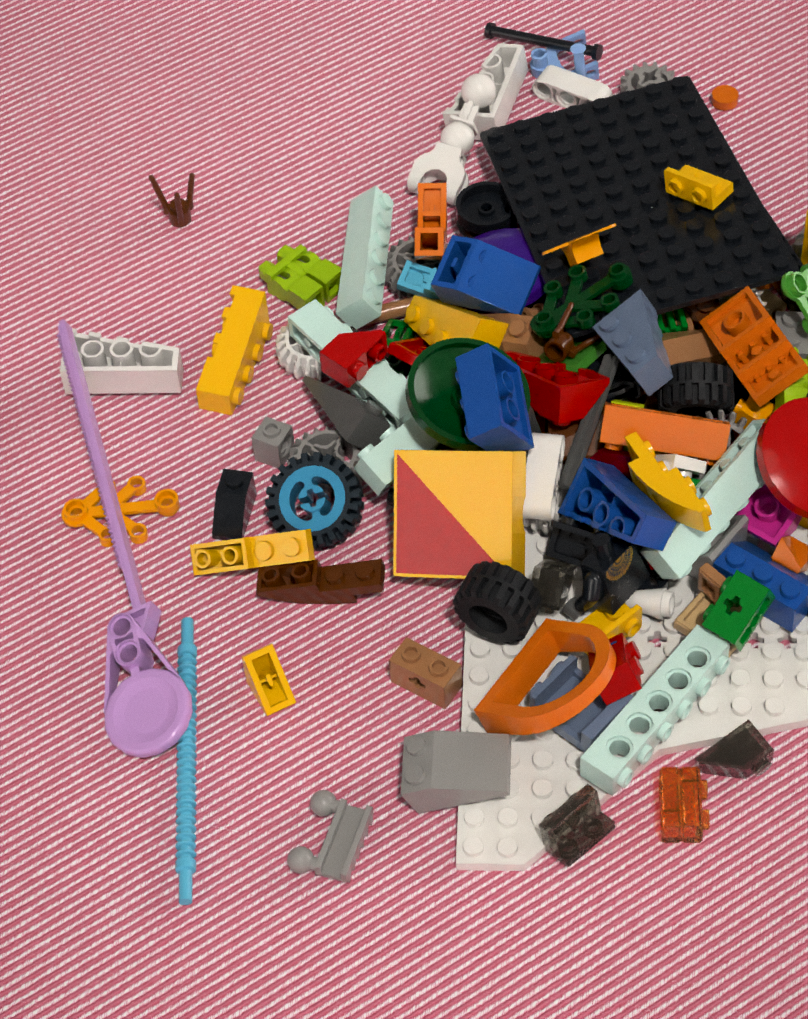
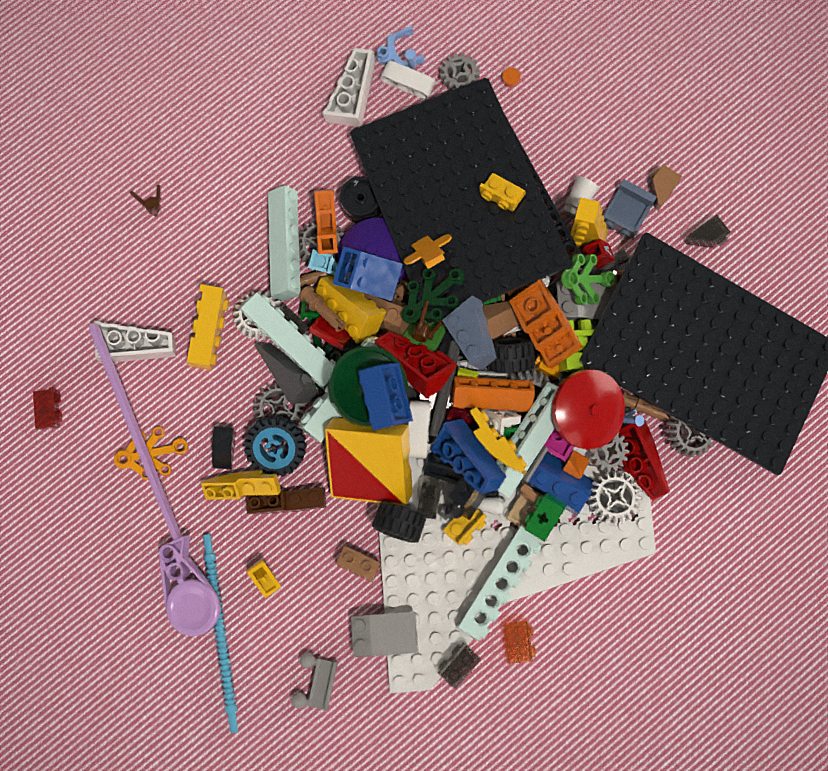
camera: 10 degrees left, 25 degrees up
(272, 442) = (242, 396): light grey brick -> none
(301, 277) = (246, 256): lime hips -> none
(352, 355) = (287, 342): red slope -> none
(404, 325) = (316, 303): none -> medium nougat pin
(457, 139) = (334, 138): white piece -> none
(492, 31) = (347, 25): black bar -> none
(500, 707) = (417, 567): orange window -> none
(590, 722) = (454, 584): sand blue panel -> none
(627, 672) = (474, 563): red brick -> none
(737, 754) = (549, 606): clear smoke slope -> none

